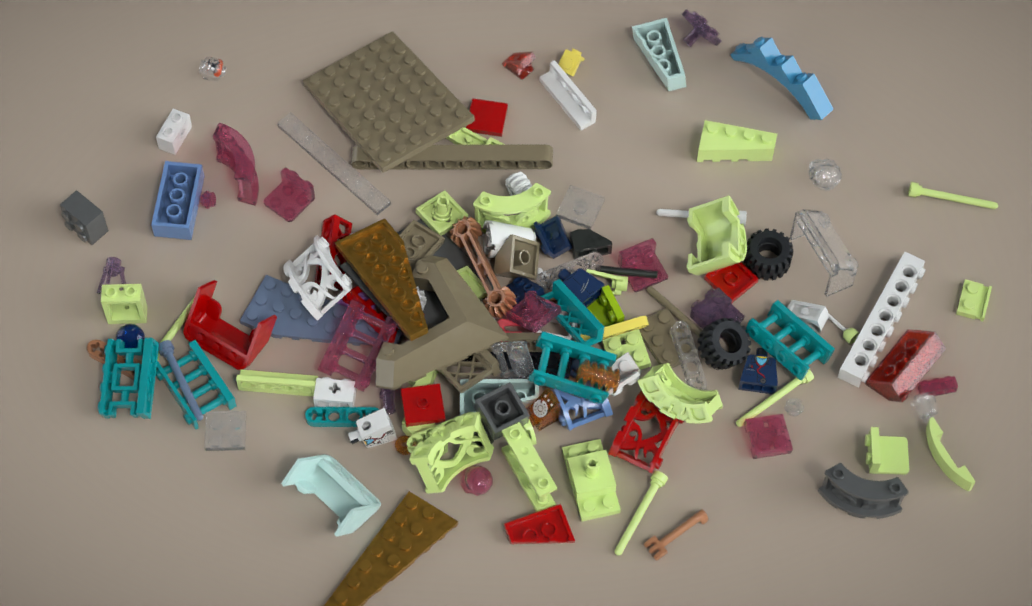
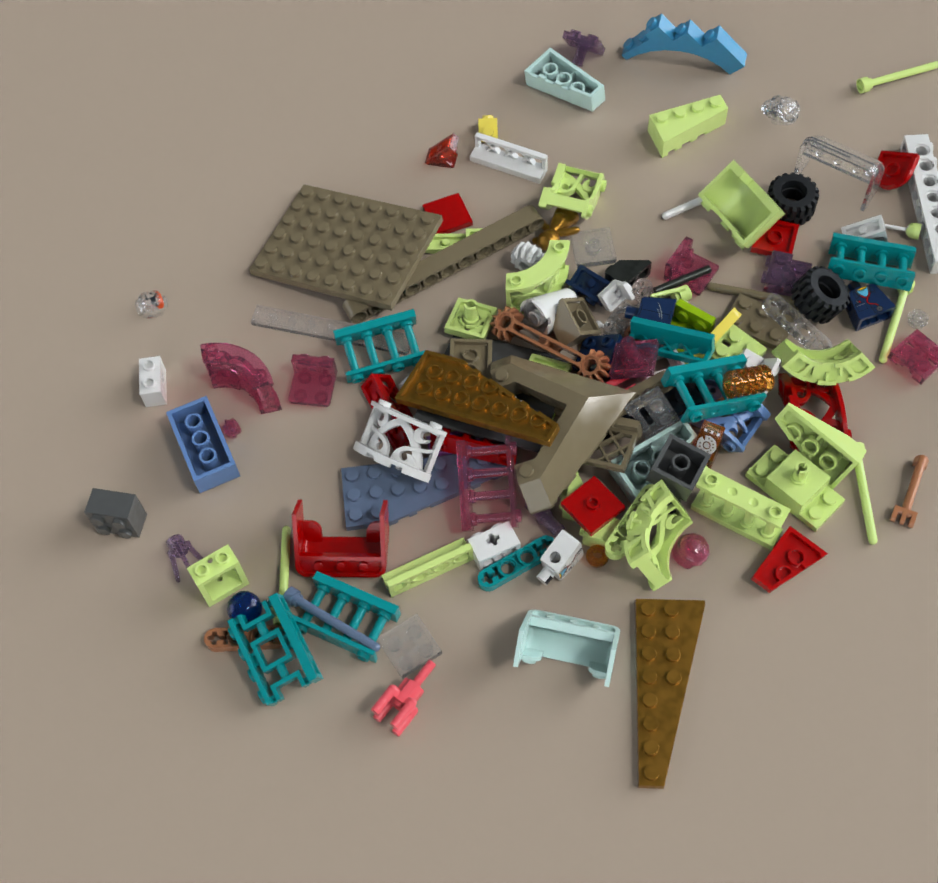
camera: 25 degrees left, 0 degrees up
(194, 464) = (403, 698): none -> coral plant
(354, 179) = (366, 331): none -> teal fence
(563, 176) = (558, 227): none -> pearl gold piece
(563, 254) = (615, 294): none -> white bracket
(574, 151) = (562, 180): none -> yellowish green fence
(631, 463) = (821, 443): none -> yellowish green wedge
(874, 275) = (898, 168): none -> red tile

